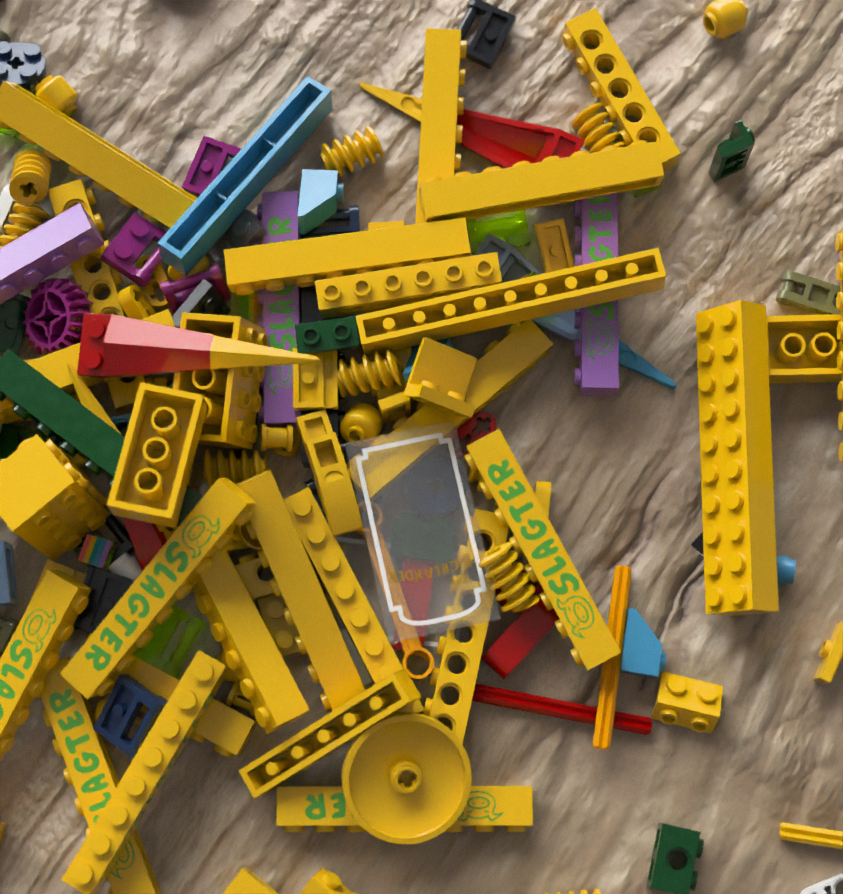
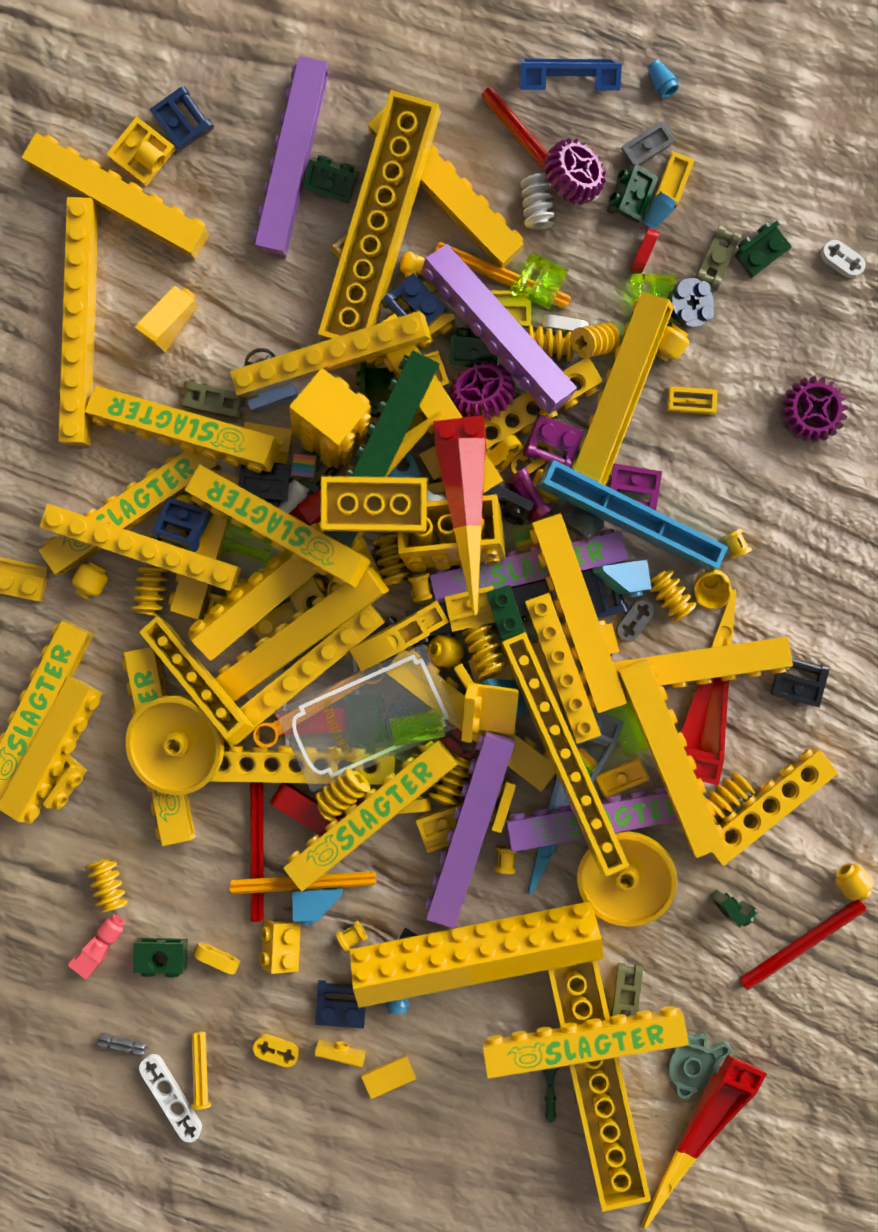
camera: 80 degrees right, 10 degrees up
(123, 112) = (691, 410): none -> yellow tile
(174, 854) = (89, 579): none -> yellow head
(205, 779) = (149, 590): none -> yellow piece
(306, 68) = (736, 543): none -> yellow bush
(354, 105) = (712, 589): none -> yellow hair
(377, 197) = (639, 624): none -> flat silver beam
(444, 466) = (417, 727): none -> clear neon green brick
(523, 450) = (452, 782): none -> yellow piece
(552, 389) = (504, 799): none -> yellow plate
(575, 470) = (435, 827): none -> yellow plate
(582, 436) = (470, 828): none -> medium lavender brick
(628, 405) = (505, 860): none -> yellow bush
(688, 786) = (216, 958): none -> yellow beam
(689, 609) = (351, 936): none -> yellow bush
(695, 260) = (636, 892): none -> yellow dish
(782, 644) = (337, 1011): none -> dark blue plate
(789, 89) = (802, 944): none -> red axle
(825, 738) = (273, 1055): none -> yellow beam

